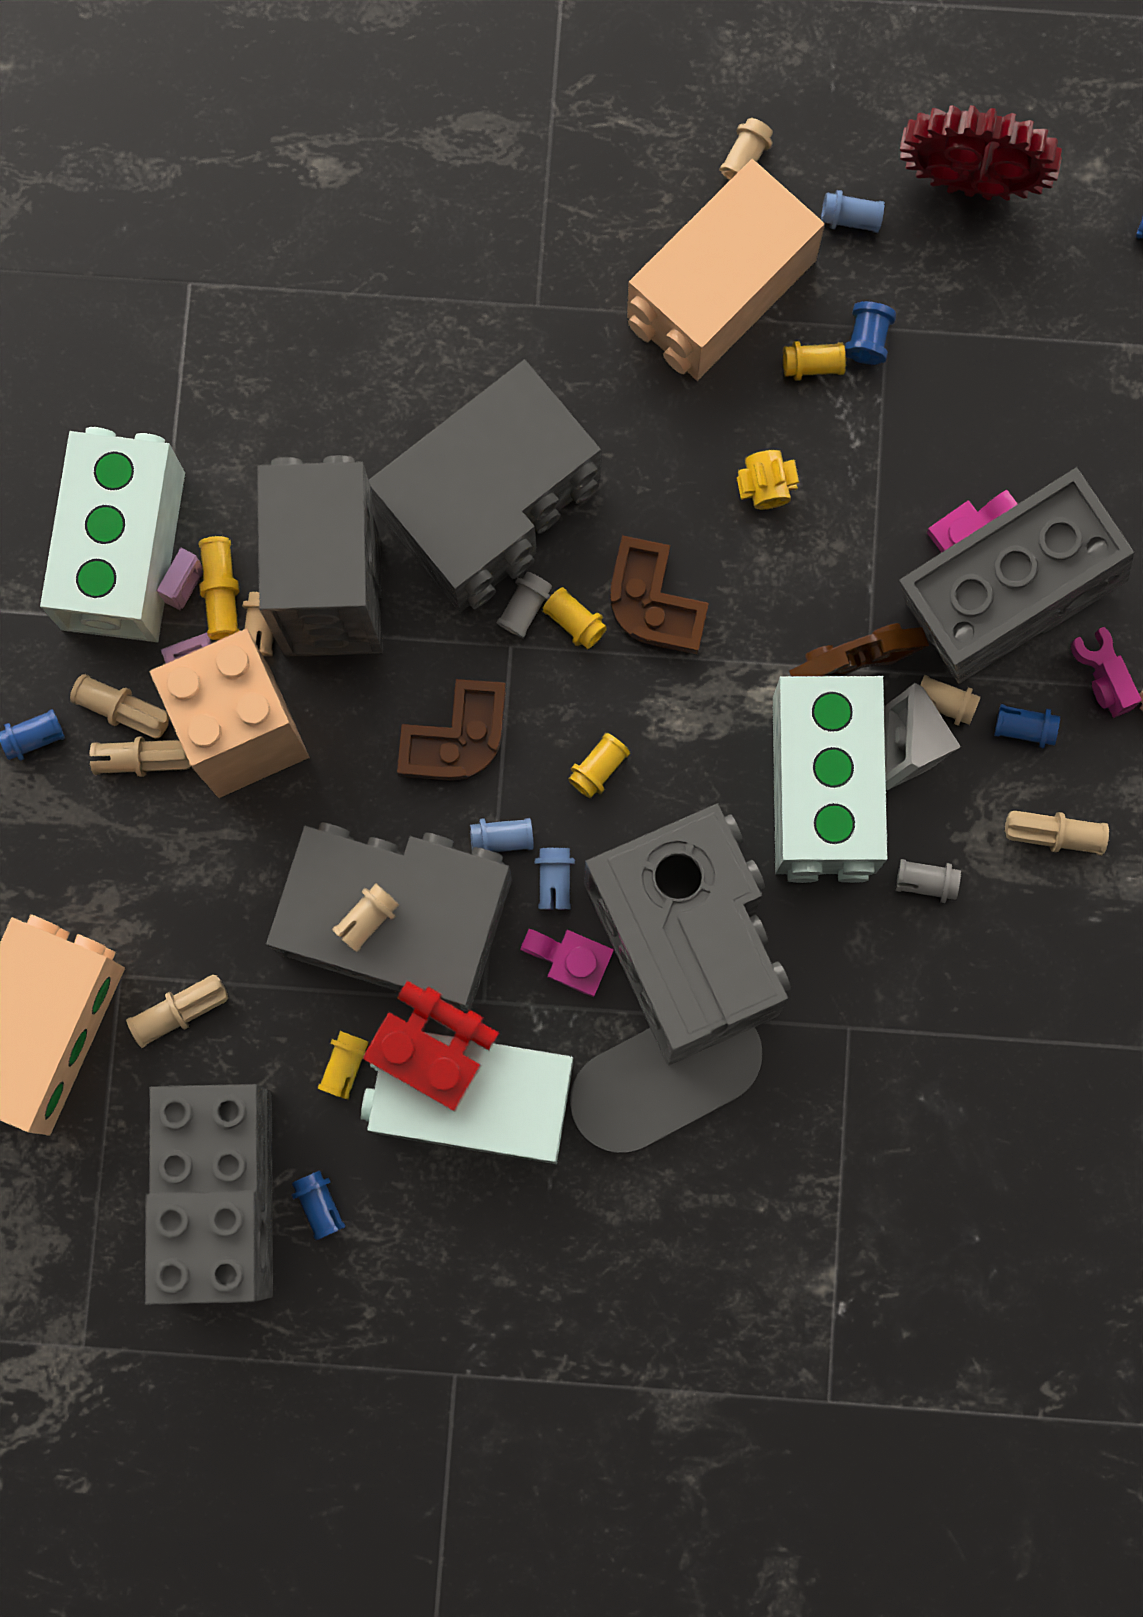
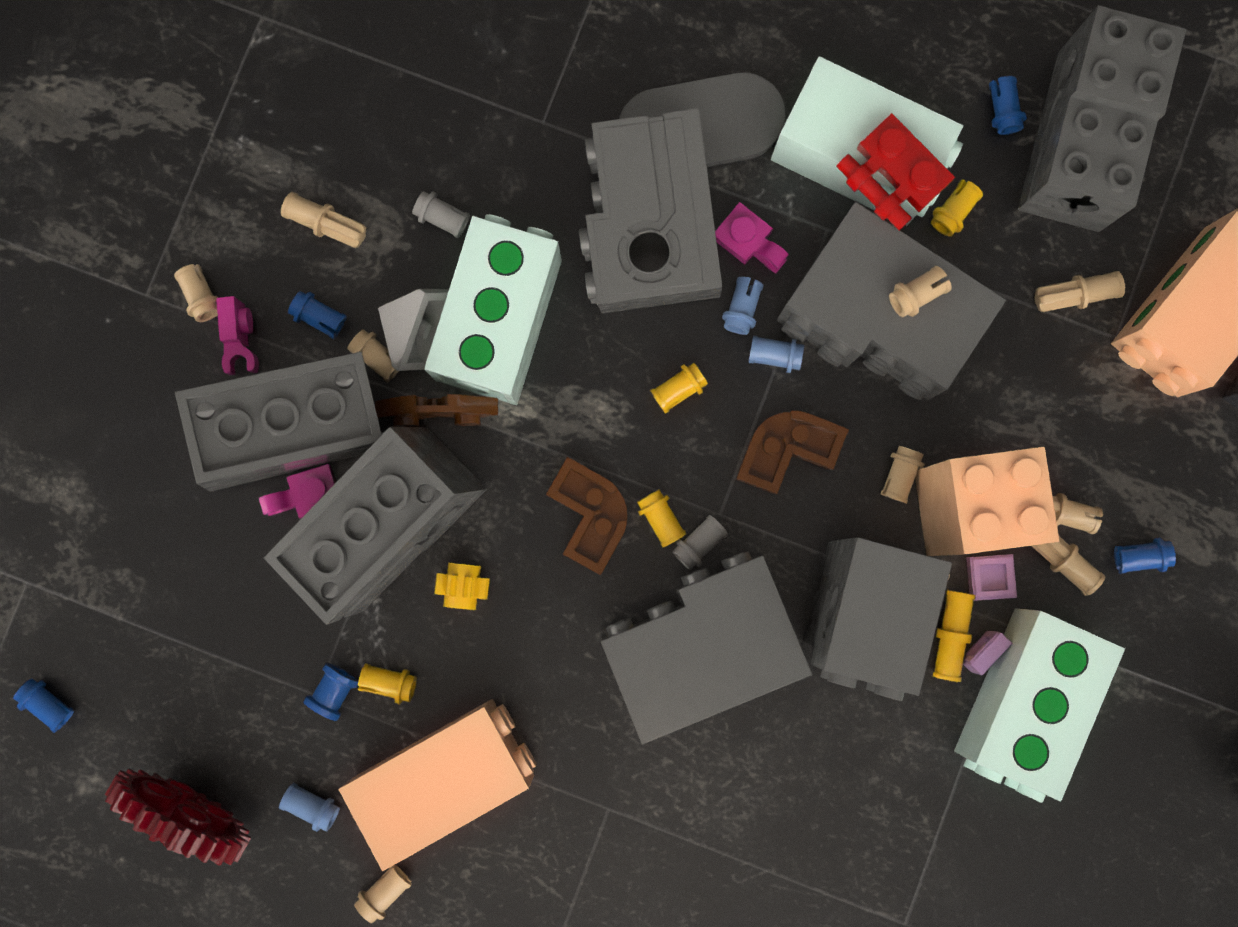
camera: 165 degrees left, 5 degrees up
(322, 744) = (902, 474): none -> tan pin
(878, 506) = (374, 522): none -> dark grey piece

